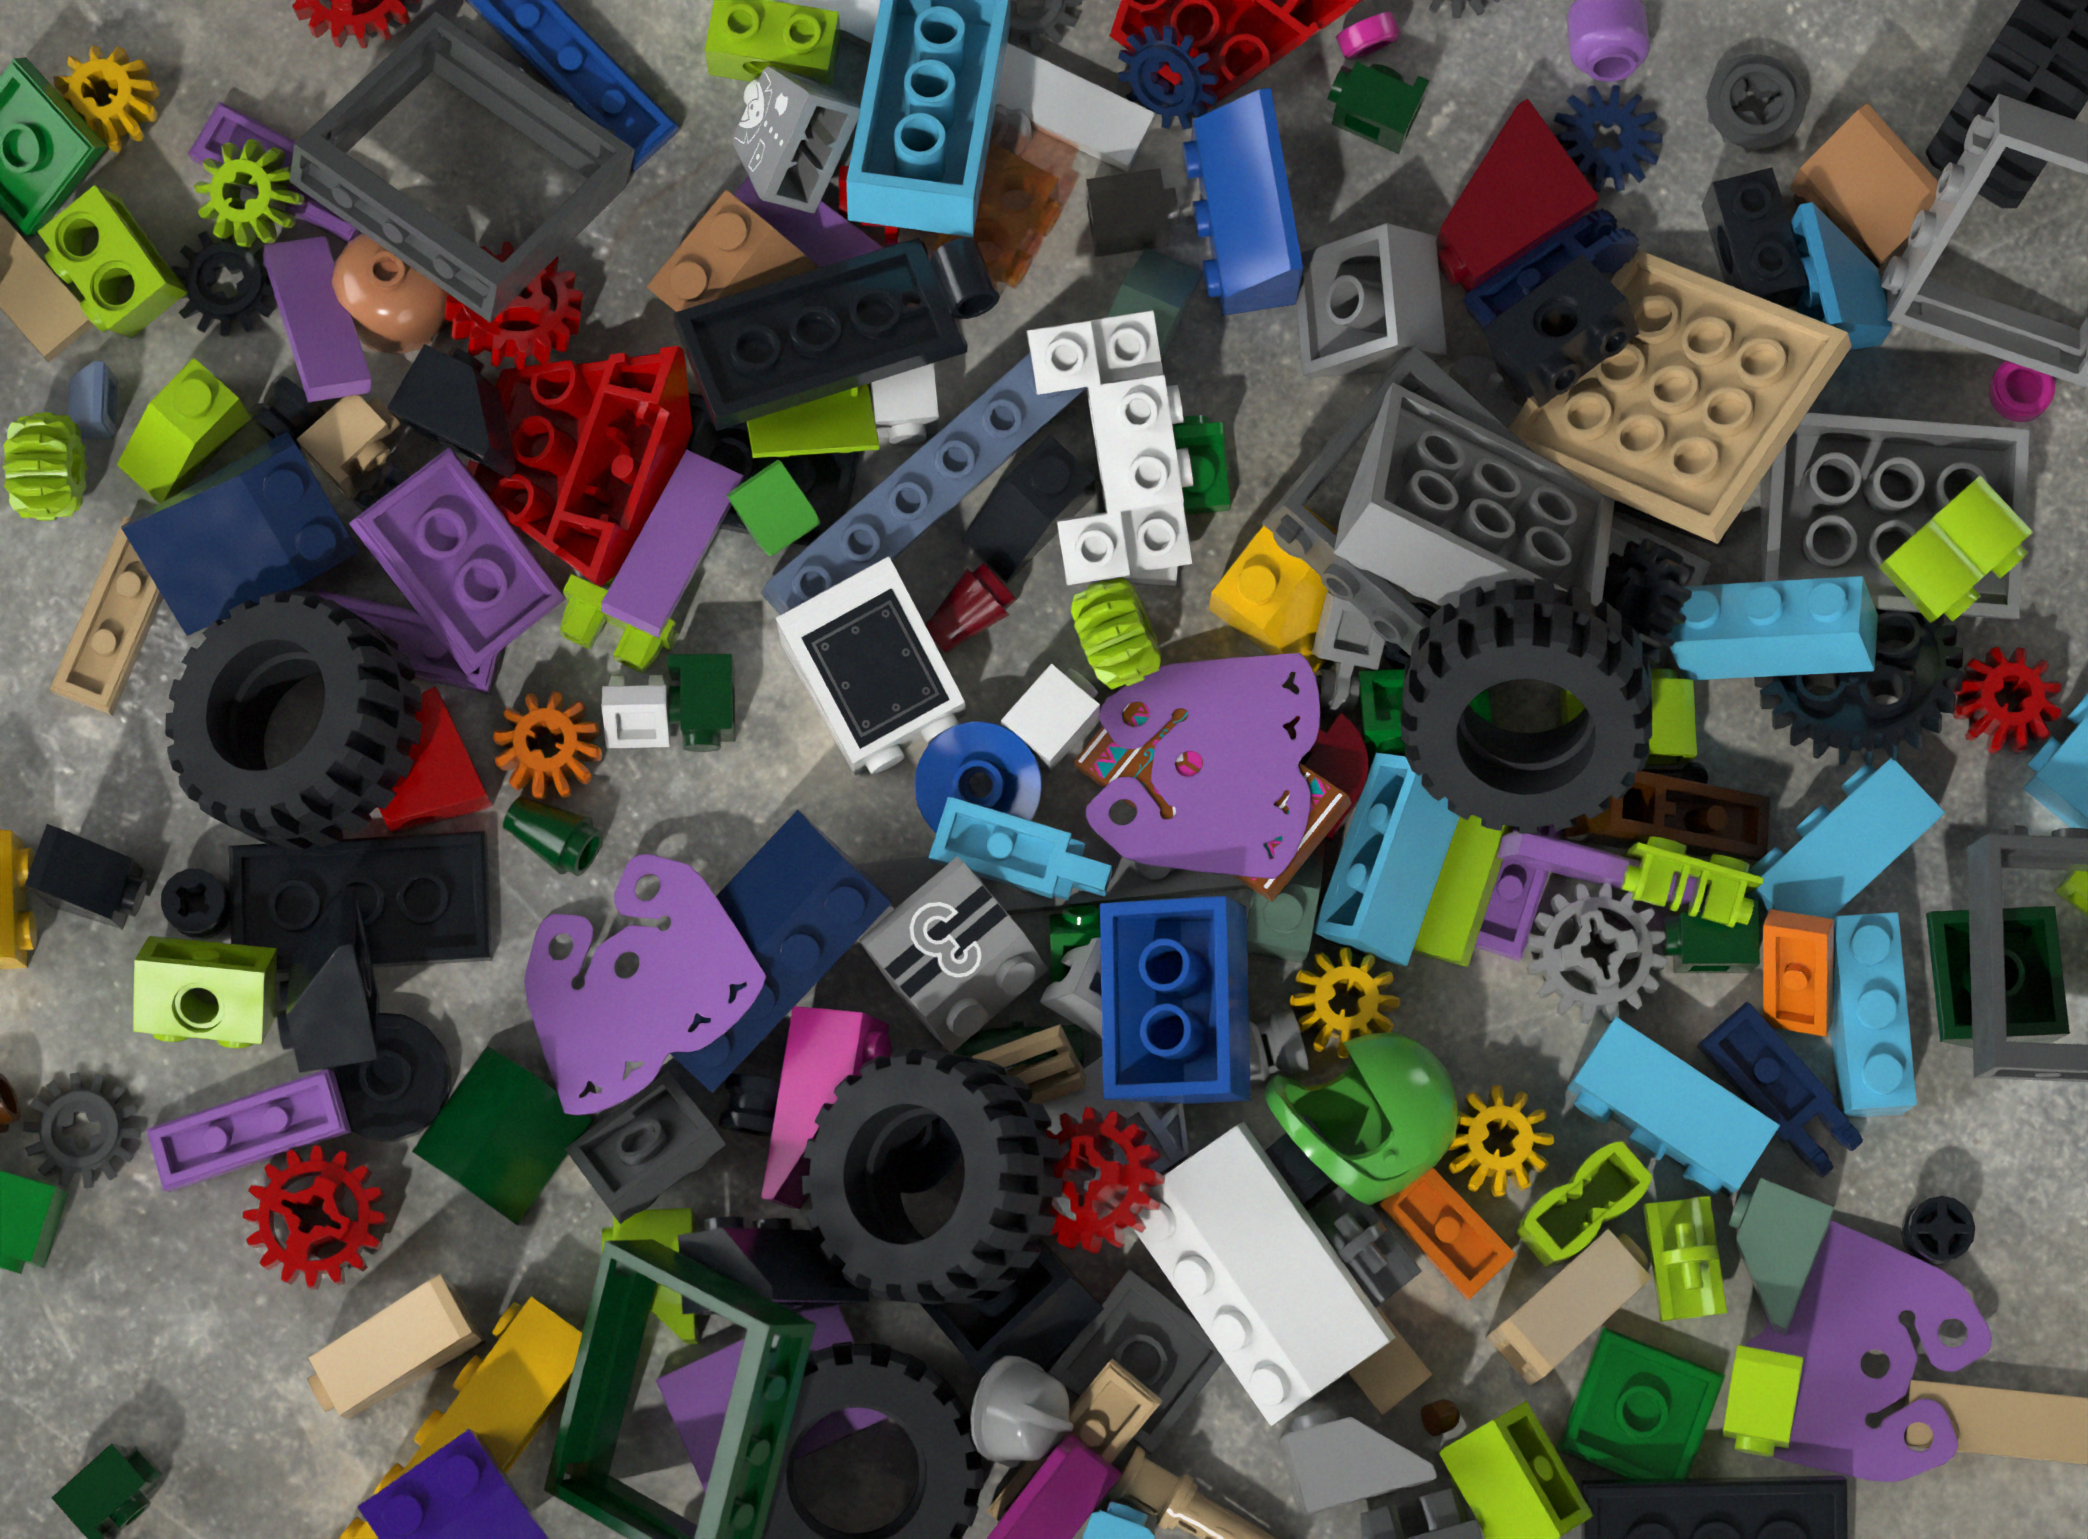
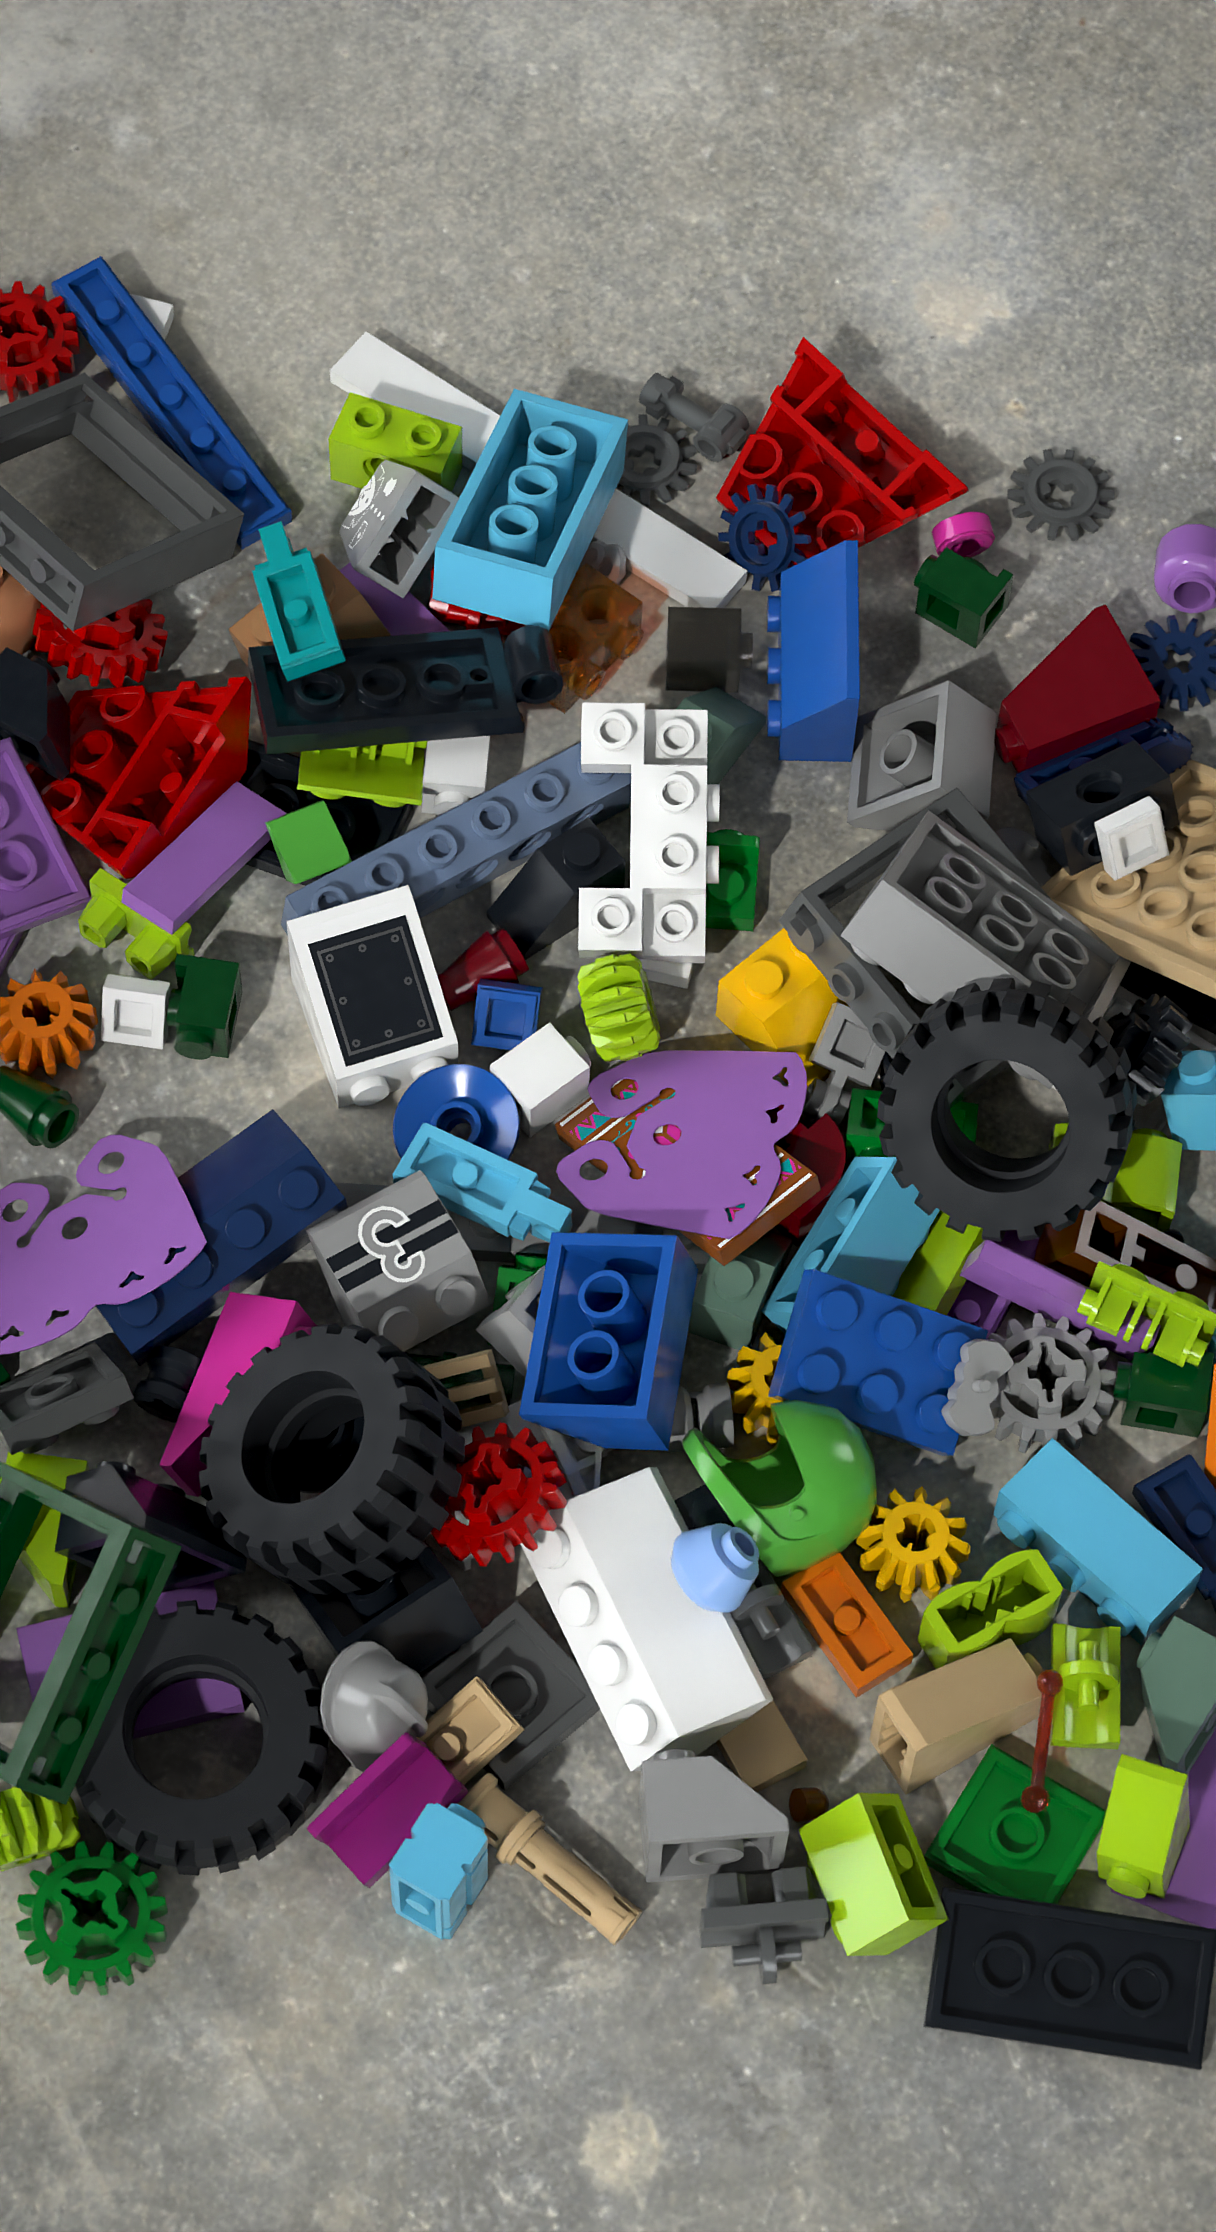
camera: 10 degrees right, 15 degrees down
(714, 264) = (295, 606): none -> teal hinge
(1004, 654) = (505, 1013): none -> blue tile
(1319, 1222) = (715, 1566): none -> light blue cone
(1436, 970) = (872, 1360): none -> blue plate
(1534, 978) = (976, 1387): none -> light grey piece
(1597, 368) = (1131, 838): none -> white tile
(1654, 1375) = (1036, 1797): none -> clear red hinge

